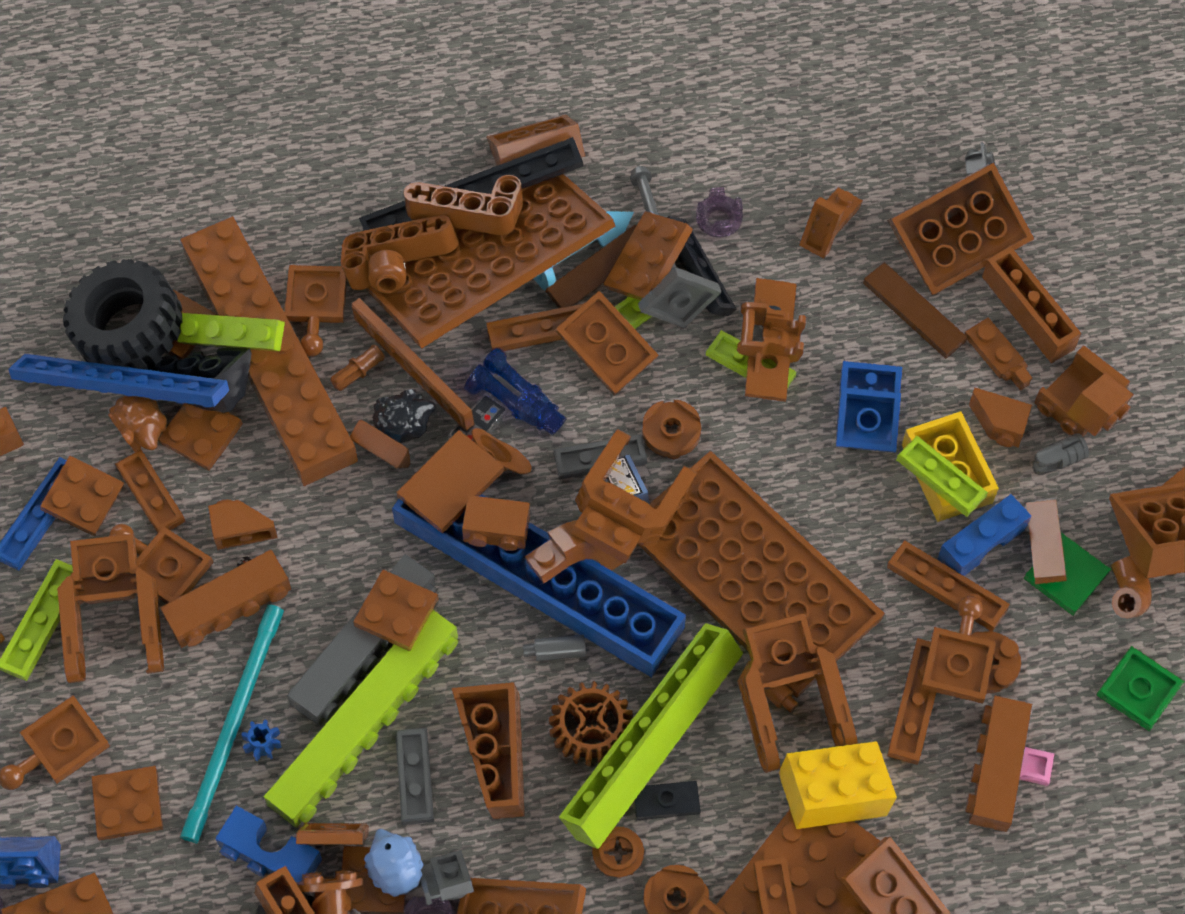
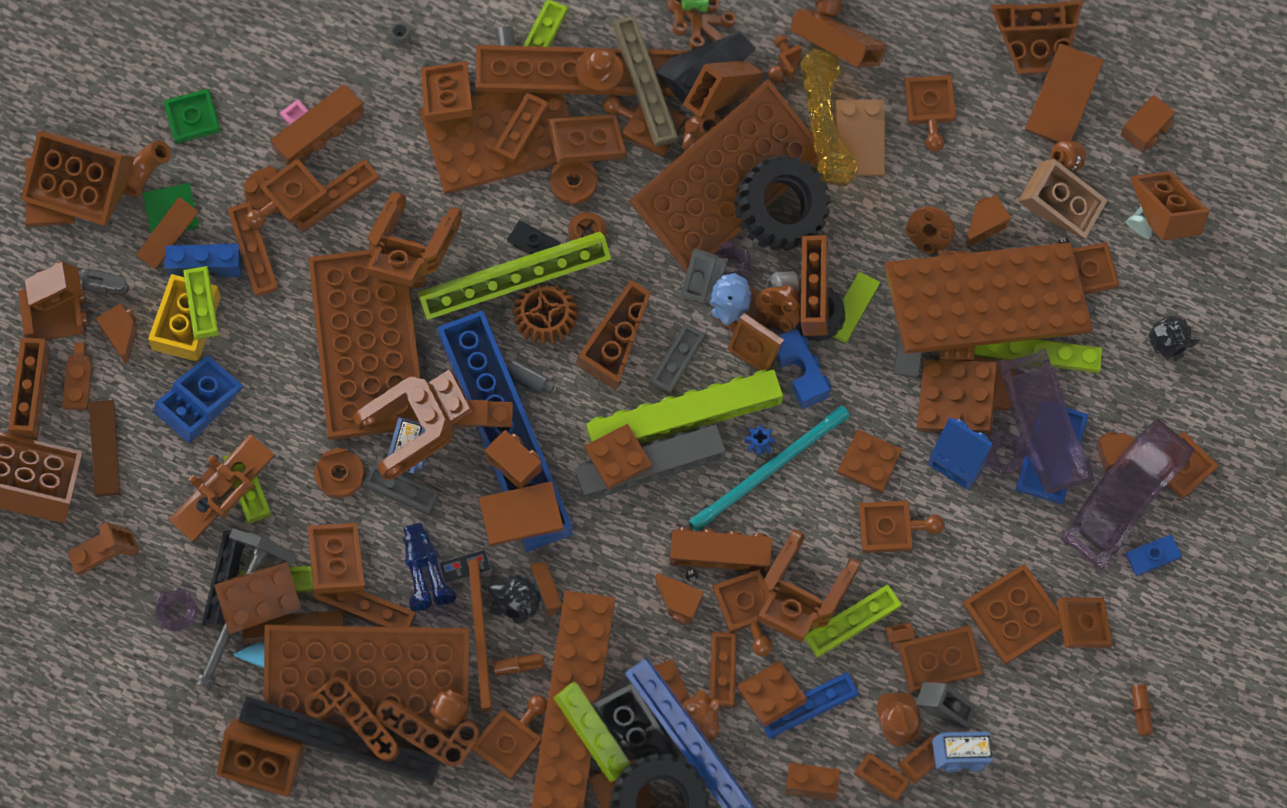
camera: 145 degrees left, 5 degrees up
(502, 452) = (469, 527): dark orange piece -> none
(837, 785) = (428, 171): yellow brick -> none

